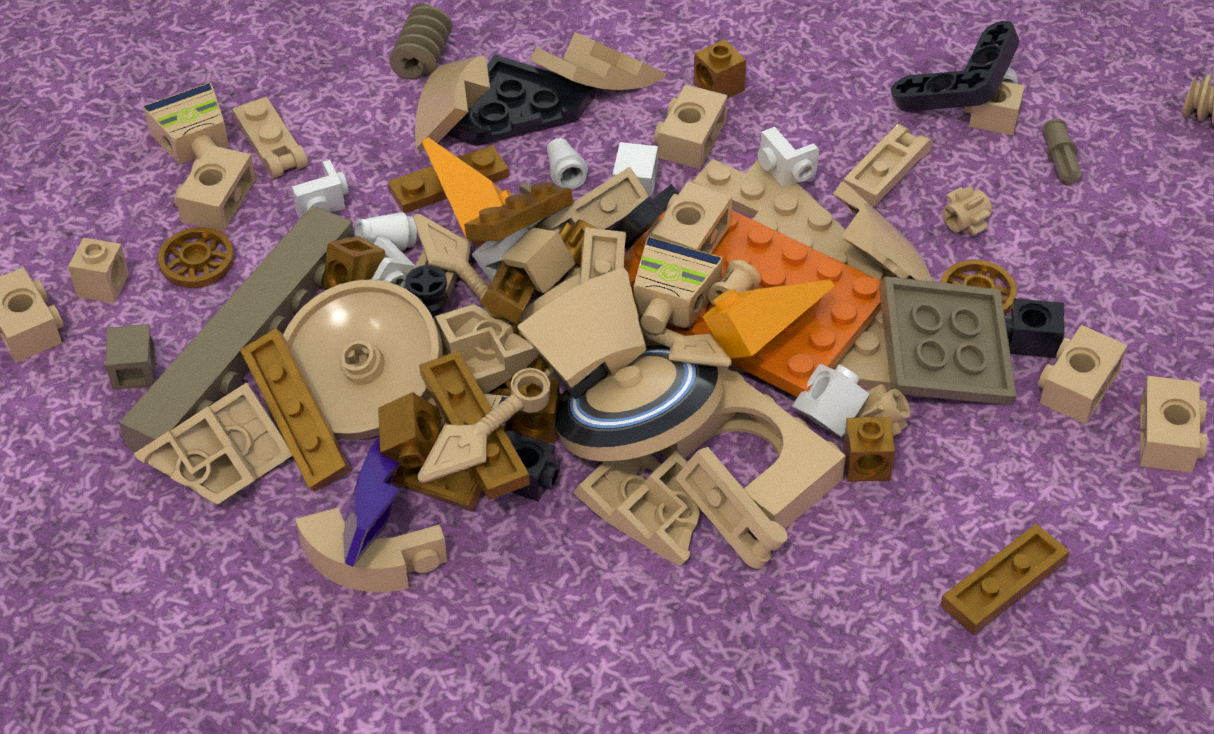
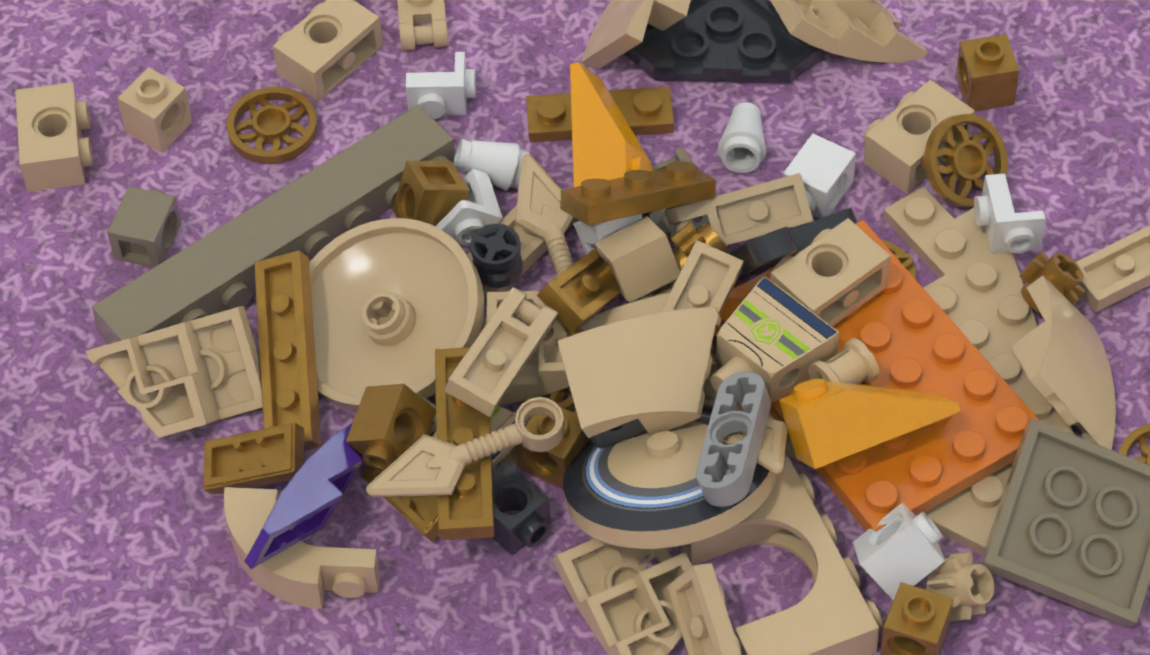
camera: 25 degrees right, 5 degrees up
(304, 493) = (253, 458): none -> pearl gold plate
(475, 349) = (500, 352): none -> tan plate
(694, 361) = (742, 456): none -> light grey beam
(735, 129) = (964, 159): none -> pearl gold wheel
(828, 185) = (1059, 271): none -> pearl gold gear

